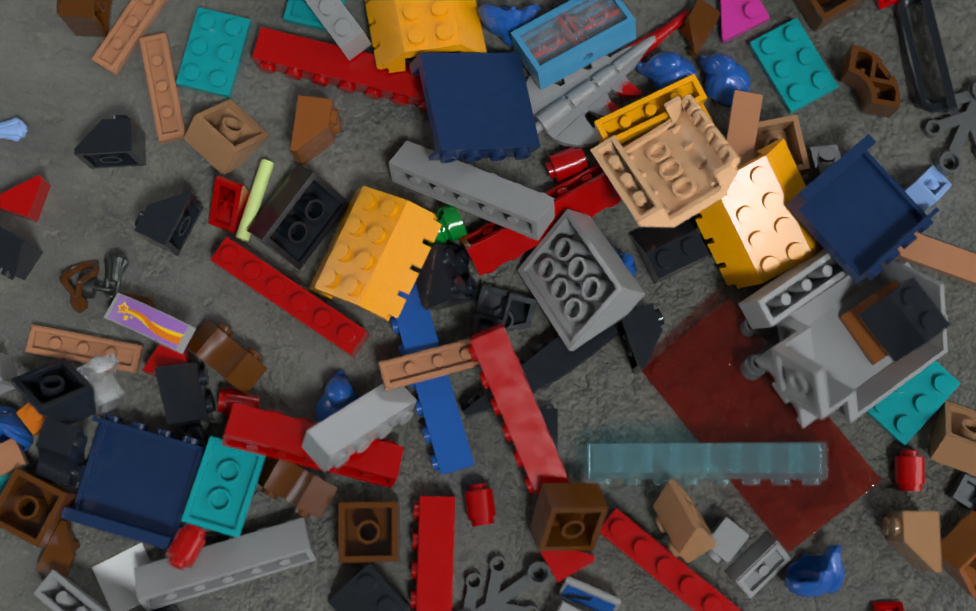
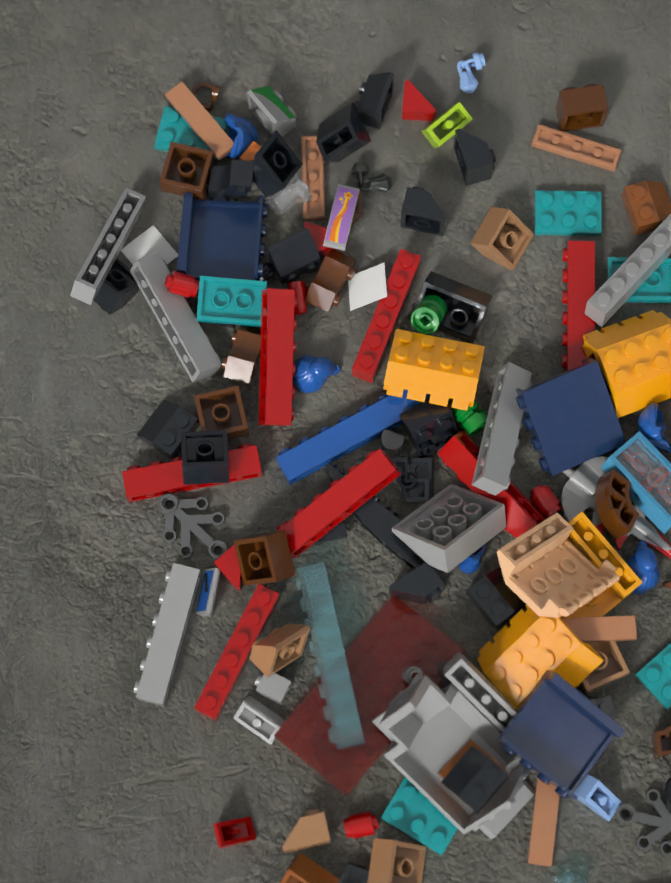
camera: 80 degrees right, 5 degrees down
(37, 298) = (342, 134): none -> black slope
(59, 551) = (160, 199): reddish brown slope -> none
(62, 166) = (445, 125): none -> lime brick
(77, 301) = (348, 162): reddish brown piece -> none
(163, 87) = (529, 181): nougat tile -> none
(227, 204) = (448, 252): red slope -> none
(247, 312) = (367, 286): none -> white sticker
(255, 199) = (459, 272): yellowish green piece -> none
(304, 244) = (428, 314): none -> green wheel
(314, 127) = (522, 300): dark orange slope -> none
(357, 425) = (300, 386): light grey brick -> none
(424, 564) = (205, 457): none -> black slope
(426, 365) = (355, 424): nougat tile -> none
(452, 328) = (392, 442): none -> dark grey brick
(480, 505) = (260, 494): red brick -> none
(593, 81) = (614, 504): none -> reddish brown brick
(723, 77) = (650, 614): blue hair -> none
(816, 574) = (262, 763): blue hair -> none

